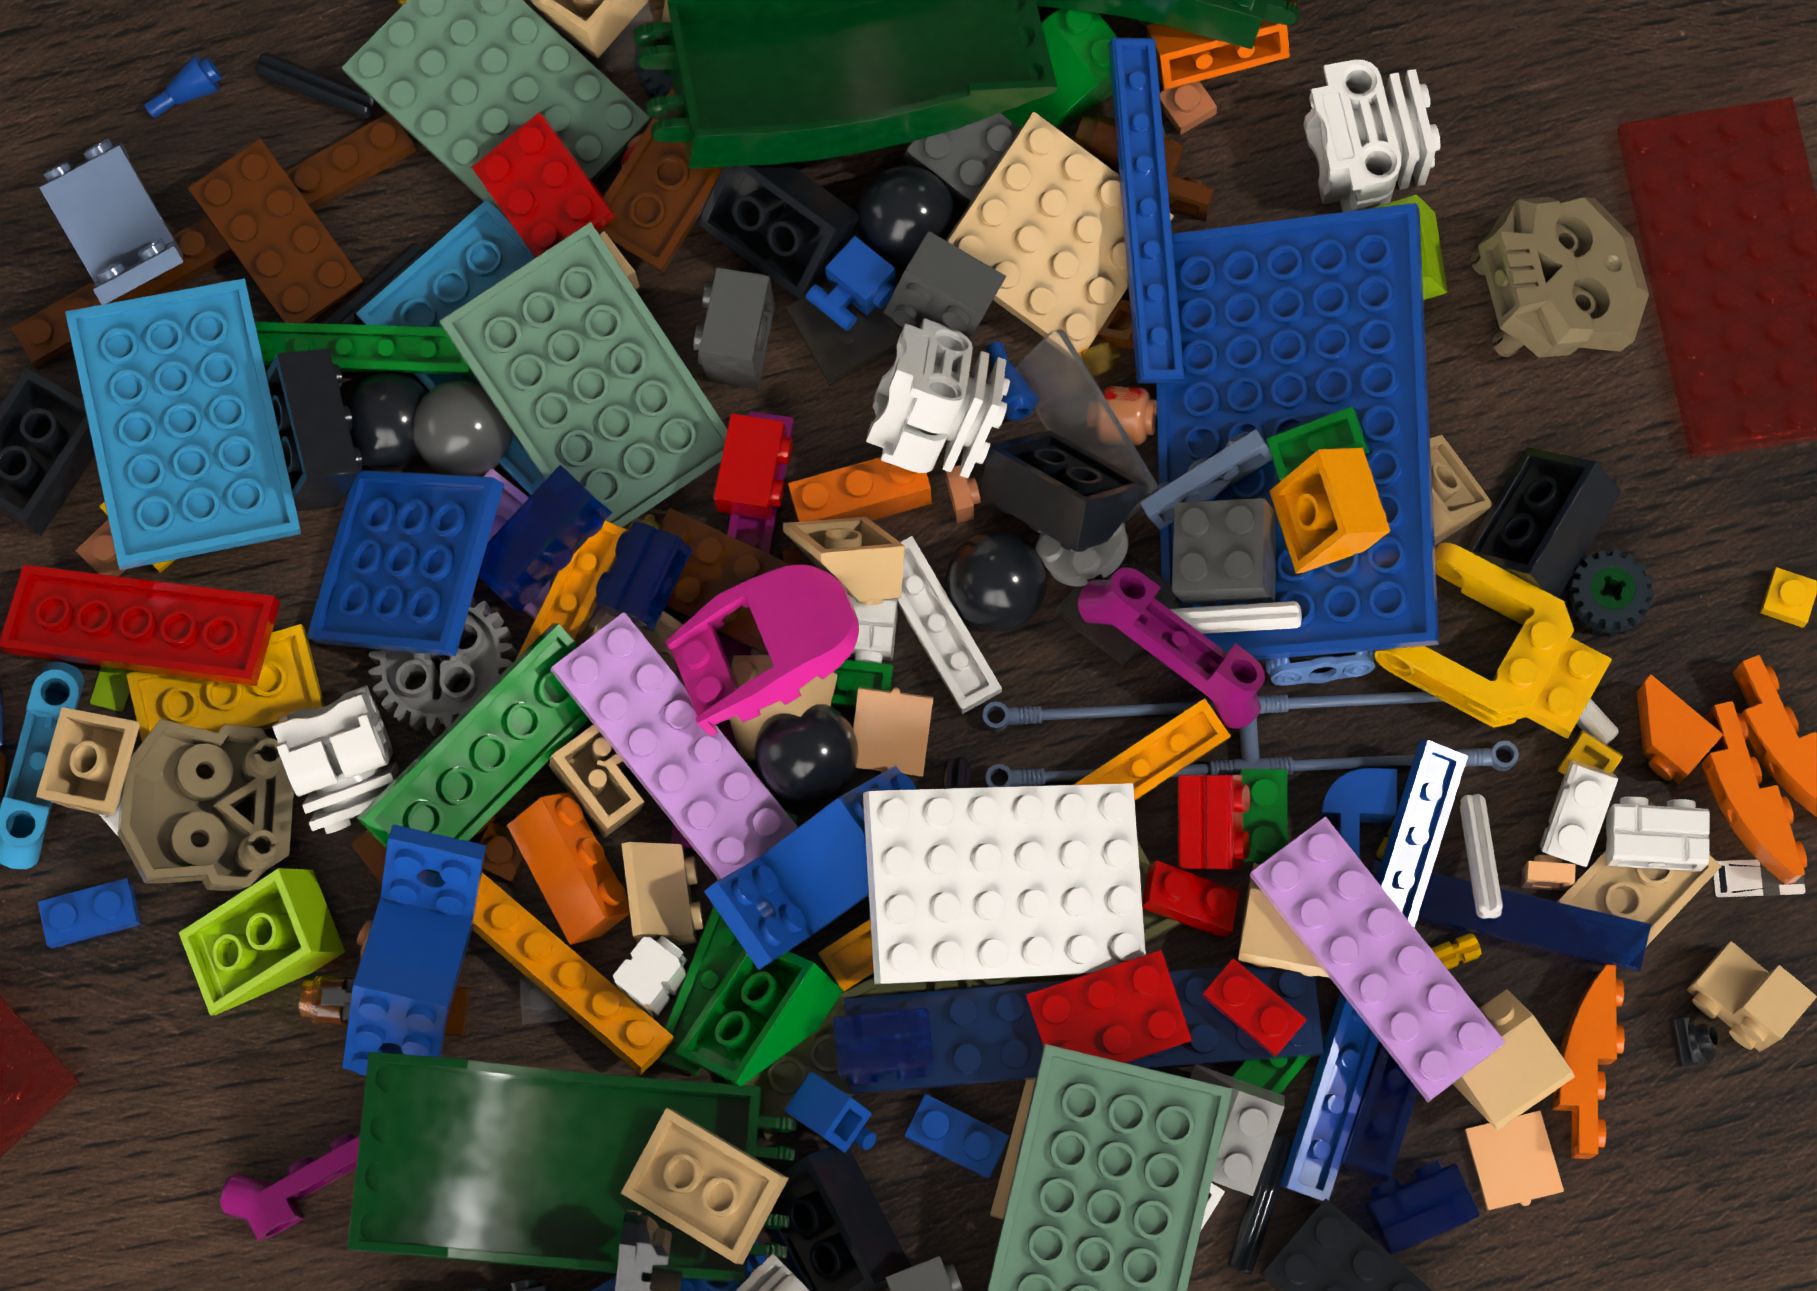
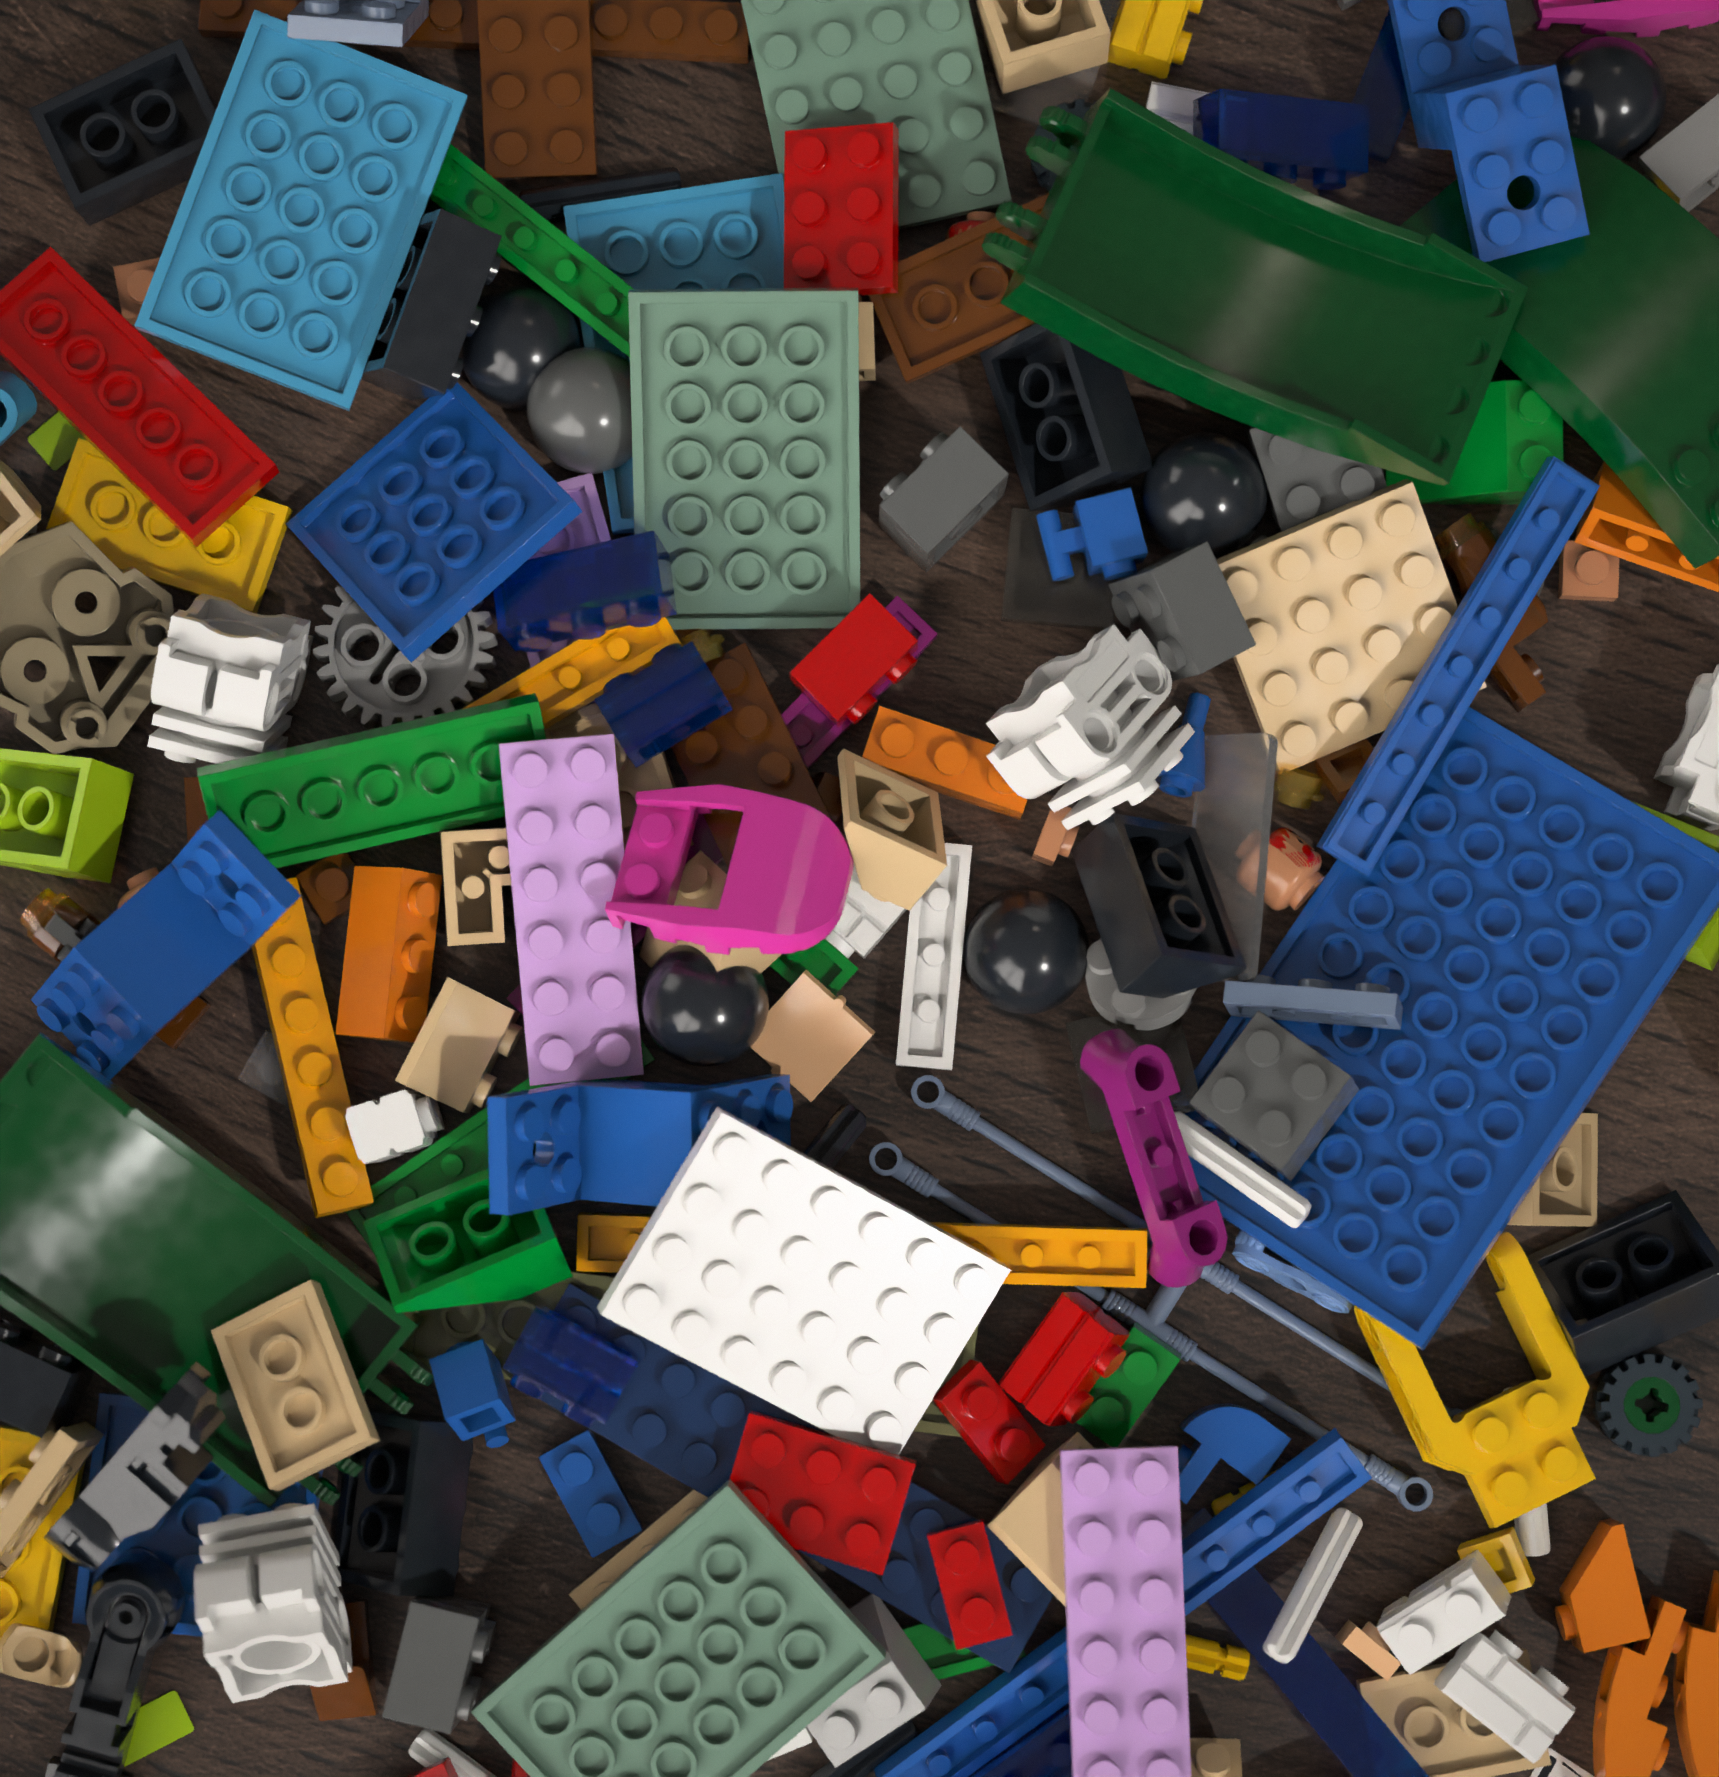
camera: 30 degrees right, 10 degrees up
(1329, 432) = (1450, 1054): green plate -> none
(1329, 508) = (1412, 1131): light orange slope -> none

